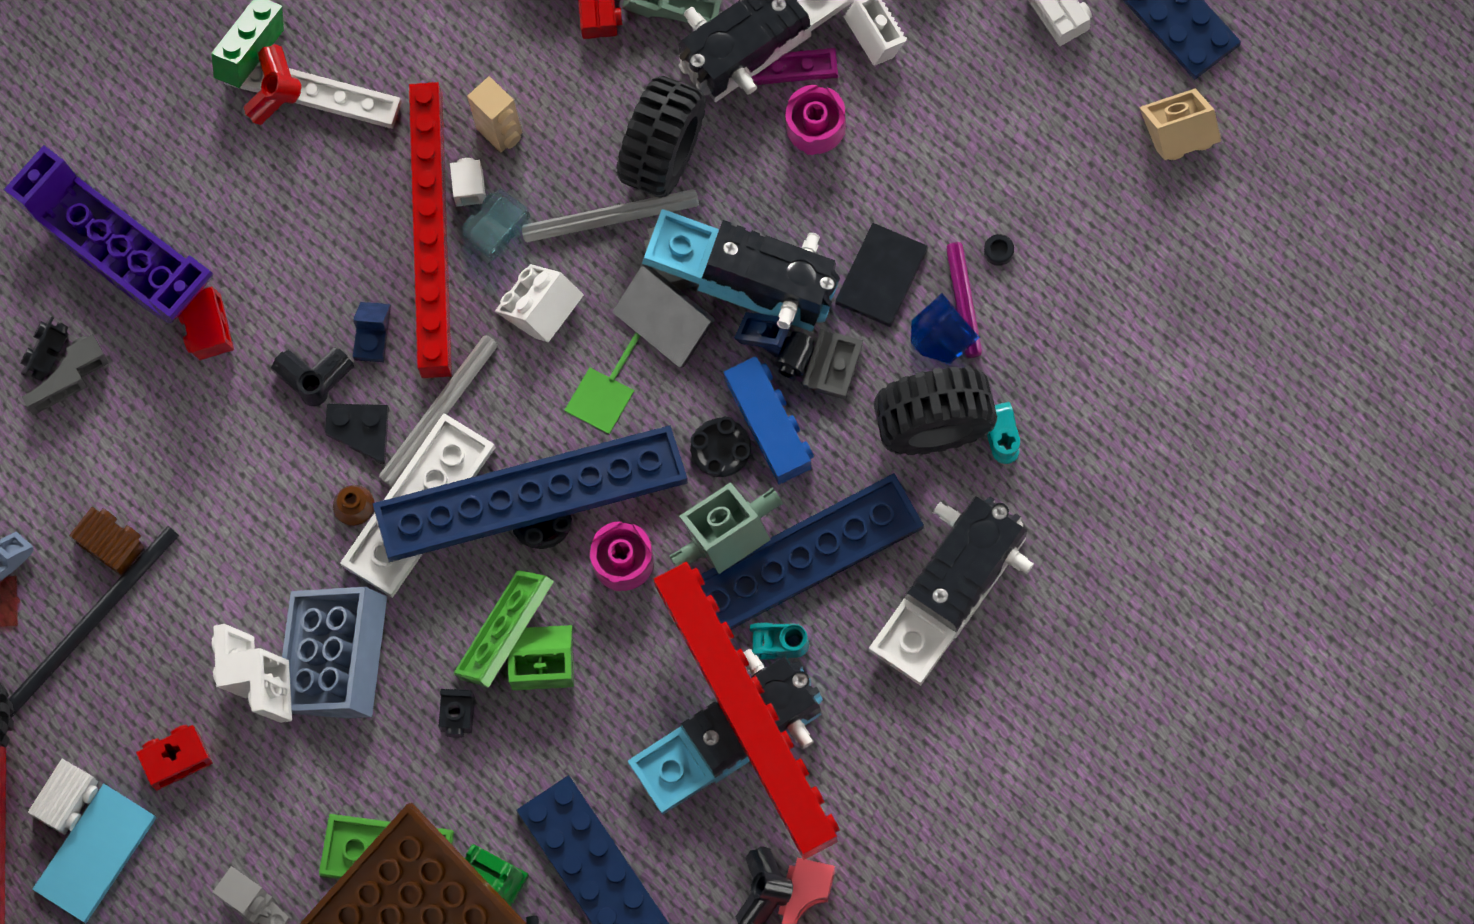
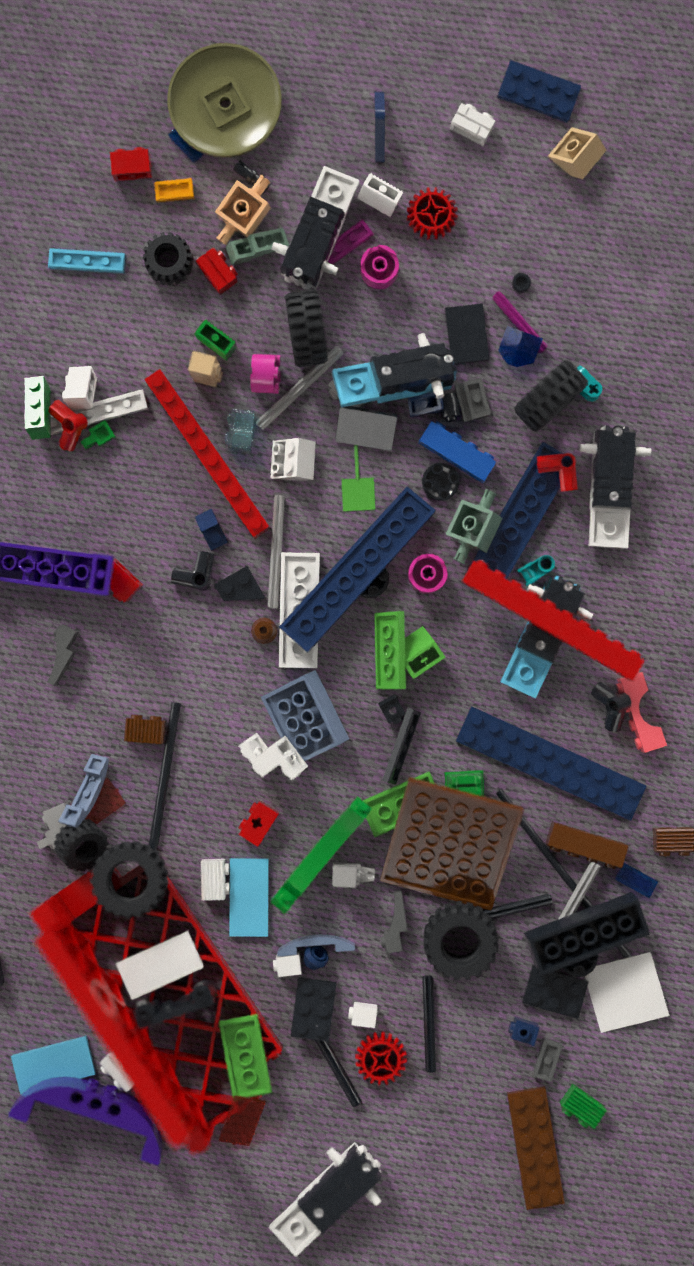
camera: 35 degrees left, 15 degrees up
(48, 337) = (38, 653): black hinge -> none
(235, 846) = (320, 854): none -> green arch
(308, 124) = (100, 434): none -> green plate
(319, 48) = (80, 388): none -> white brick
(437, 769) = (401, 746): none -> black tile
(467, 182) = (210, 415): white brick -> none
(537, 89) = (215, 340): none -> green brick
(573, 168) = (265, 373): none -> dark pink brick
(888, 508) = (553, 463): none -> red piece
(910, 80) = (439, 211): none -> red gear

